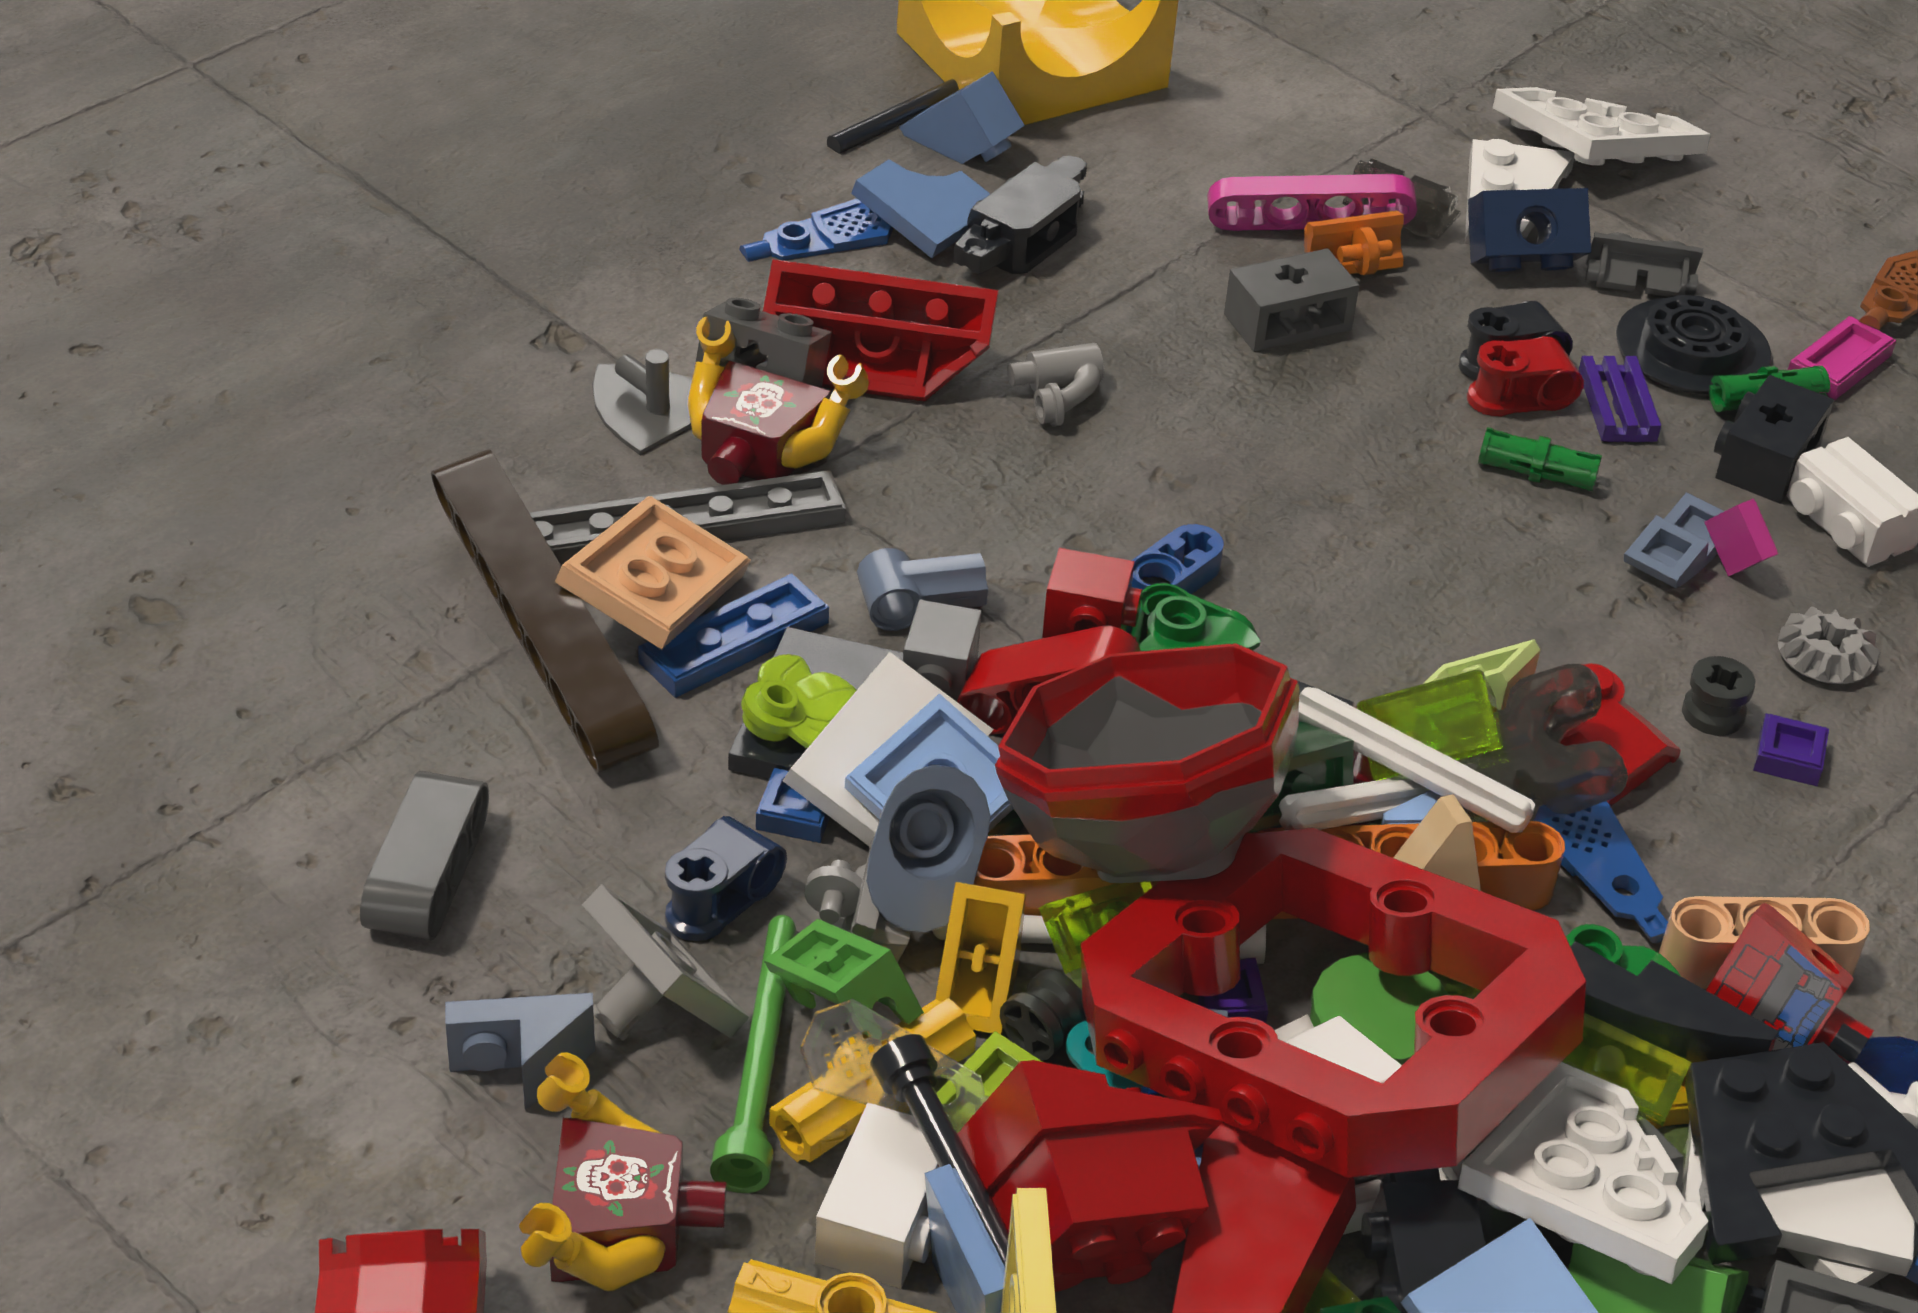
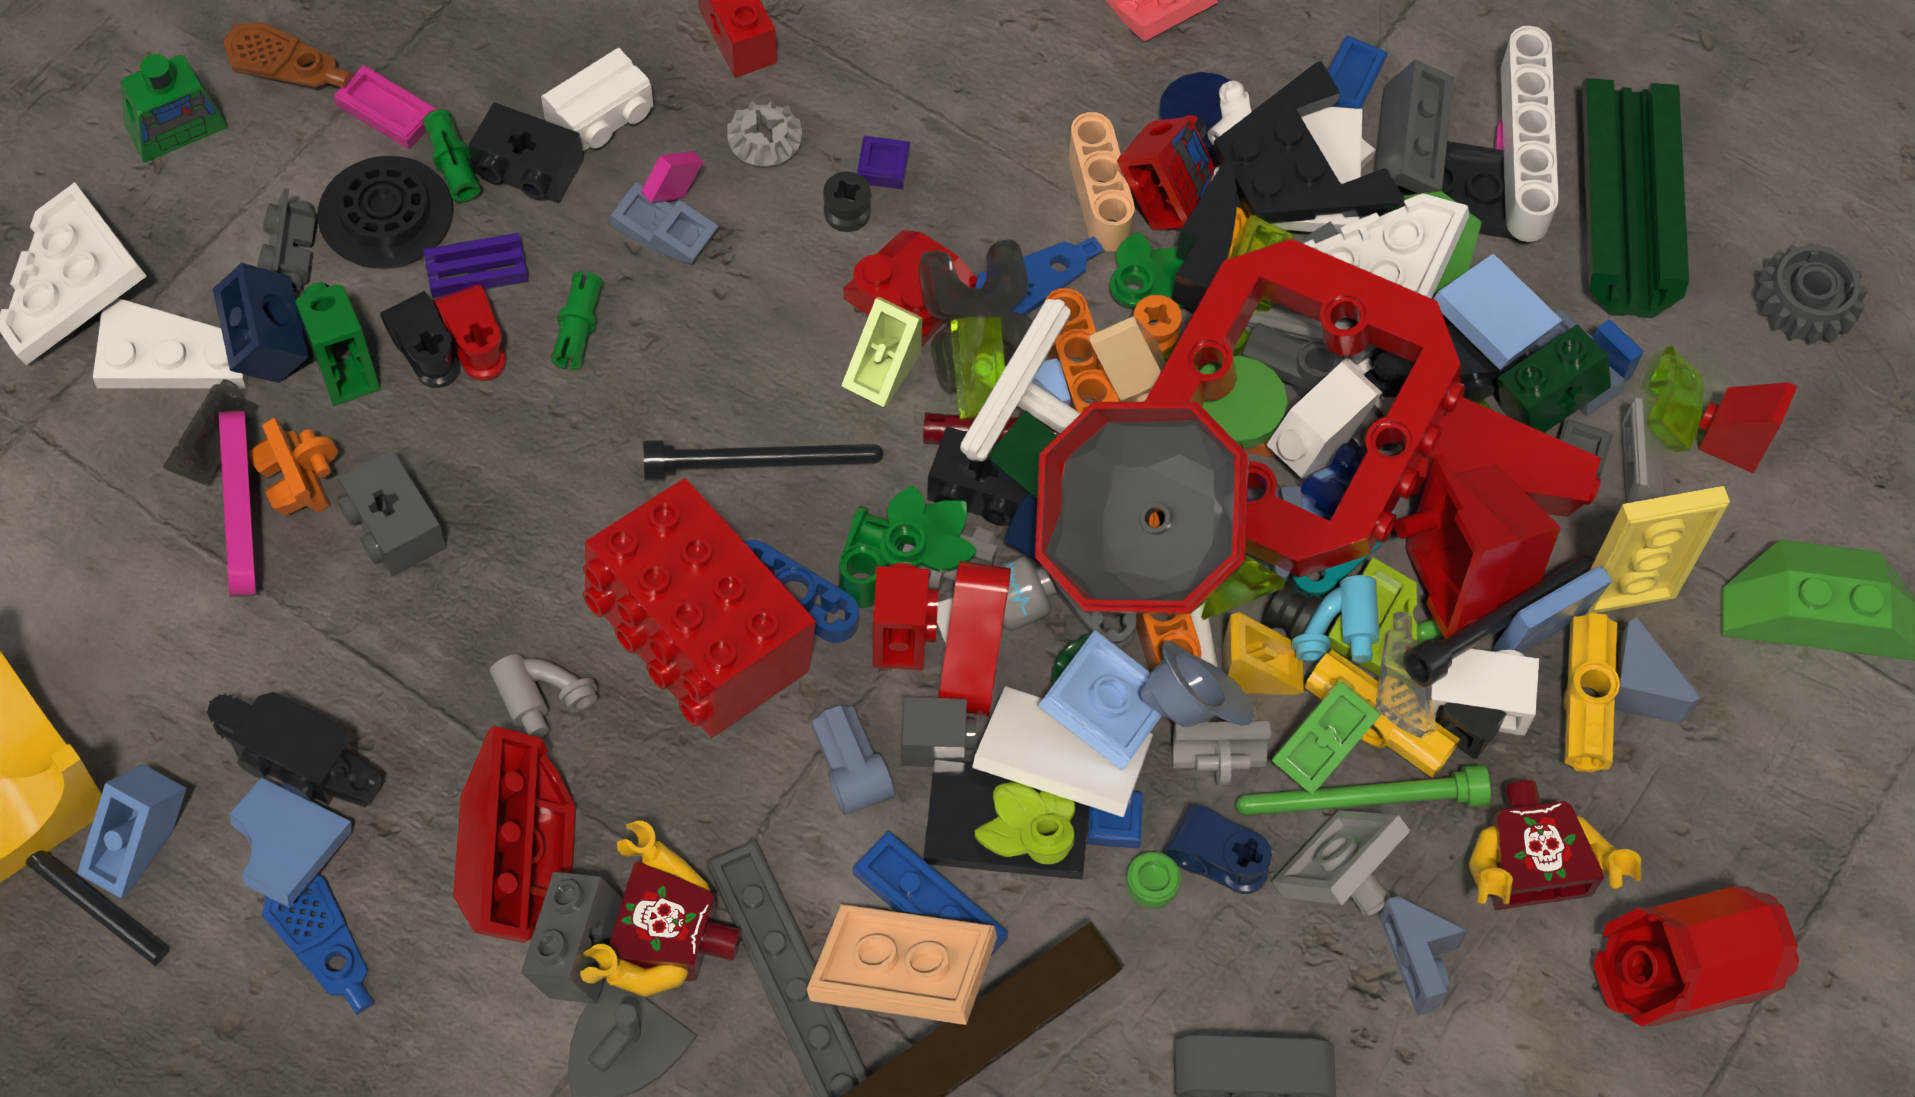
camera: 100 degrees left, 20 degrees up
(698, 813) = (1153, 880): none -> bright green tile
(817, 1162) = (1472, 725): none -> pearl dark grey slope
(1003, 1039) = (1360, 625): none -> medium azure plant
(1125, 459) = (697, 608): none -> red brick
(1342, 498) = (663, 459): none -> black piece
(1504, 264) = (331, 320): none -> green torso
(1813, 190) = (167, 106): none -> green torso

